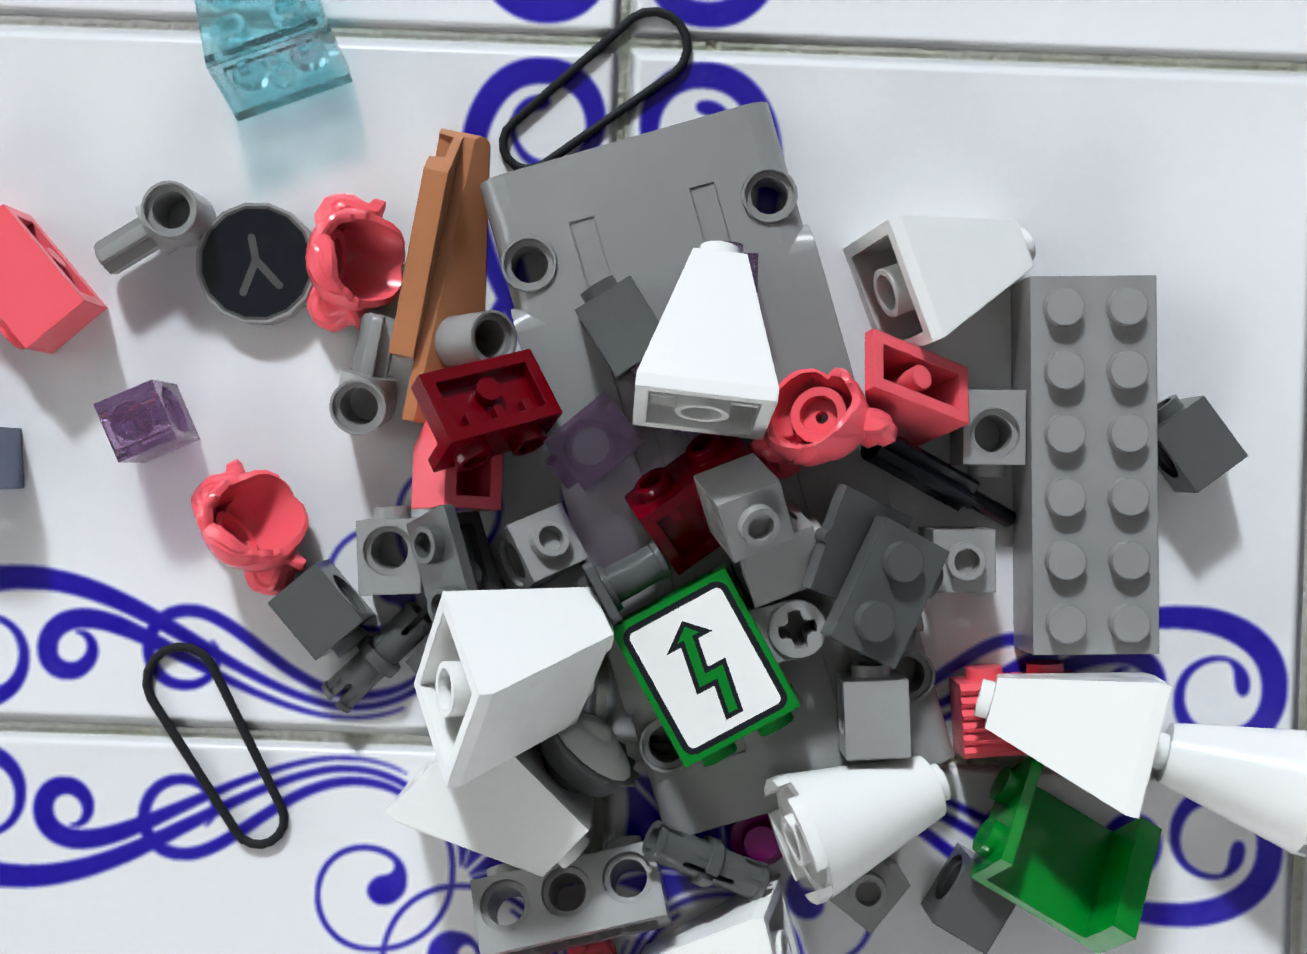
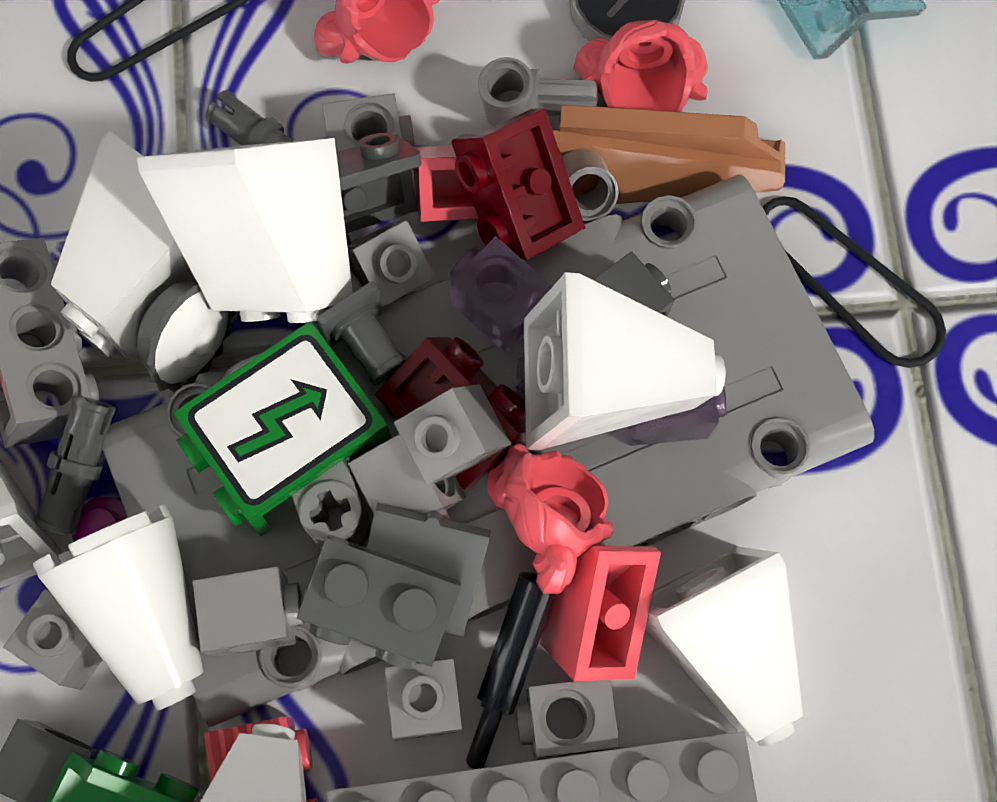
camera: 80 degrees right, 15 degrees down
(323, 611) = (301, 79): dark grey brick -> none

